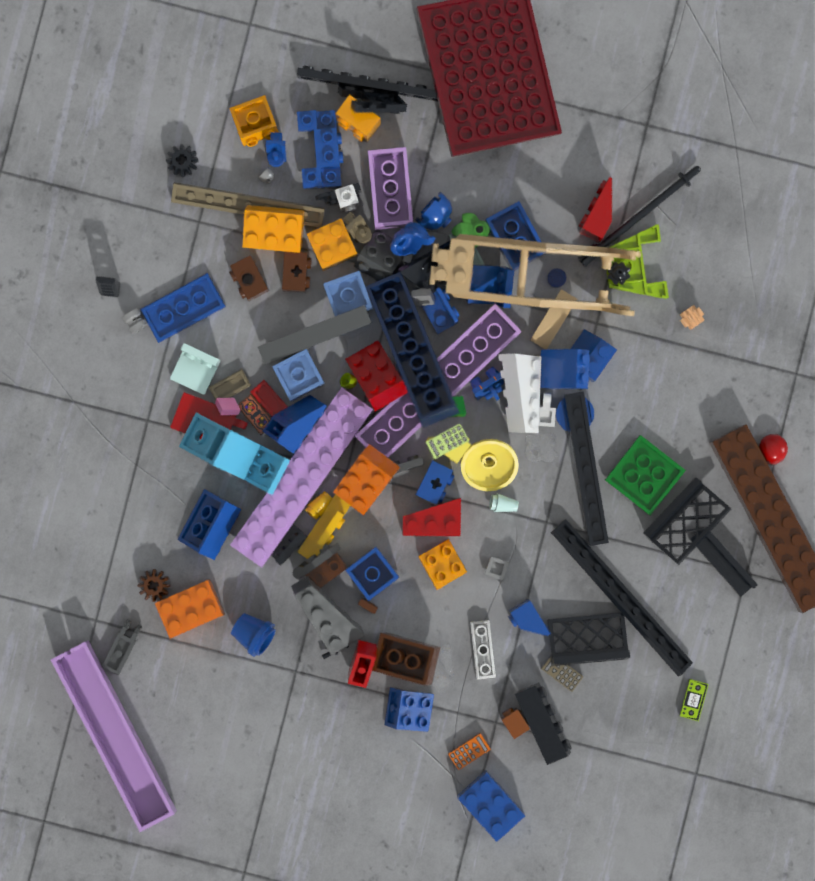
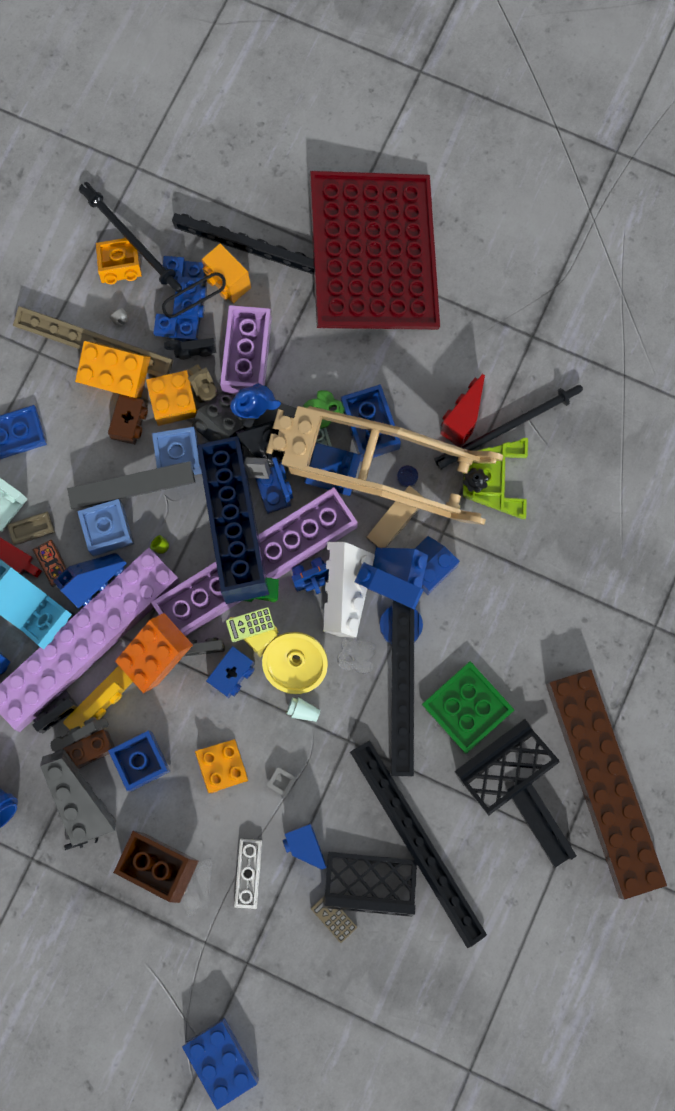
camera: 15 degrees right, 10 degrees down
(187, 165) = (34, 286): black gear -> none
(219, 65) = (95, 199): none -> black bar
(227, 406) = (21, 547): bright pink tile -> none
(256, 287) = (83, 427): reddish brown brick -> none
(268, 398) = (69, 547): red tile -> none
(276, 150) = (133, 289): blue hips -> none
(318, 505) = (96, 675): yellow cone -> none
(328, 141) = (188, 288): none -> black piece
(347, 198) = (198, 352): white bracket -> none
(362, 663) = (104, 863): red brick -> none
(368, 605) = (127, 797): reddish brown tile -> none
(373, 102) = (247, 258): black wing -> none
(376, 375) = (188, 541): red brick -> none
(409, 710) = (149, 929): blue bracket -> none
(435, 521) = (223, 715): red wedge -> none
(436, 213) = (290, 383): blue cylinder -> none
(469, 751) = (209, 991): tile -> none
(514, 722) = (267, 967): dark orange brick -> none
(543, 723) = (300, 975): black brick -> none
(547, 413) = (369, 619): white plate -> none
(560, 385) = (389, 585): none -> blue slope
(692, 317) = (548, 542): light nougat gear -> none
(693, 700) = (481, 980): tile -> none
(773, 448) = (618, 704): red hair -> none

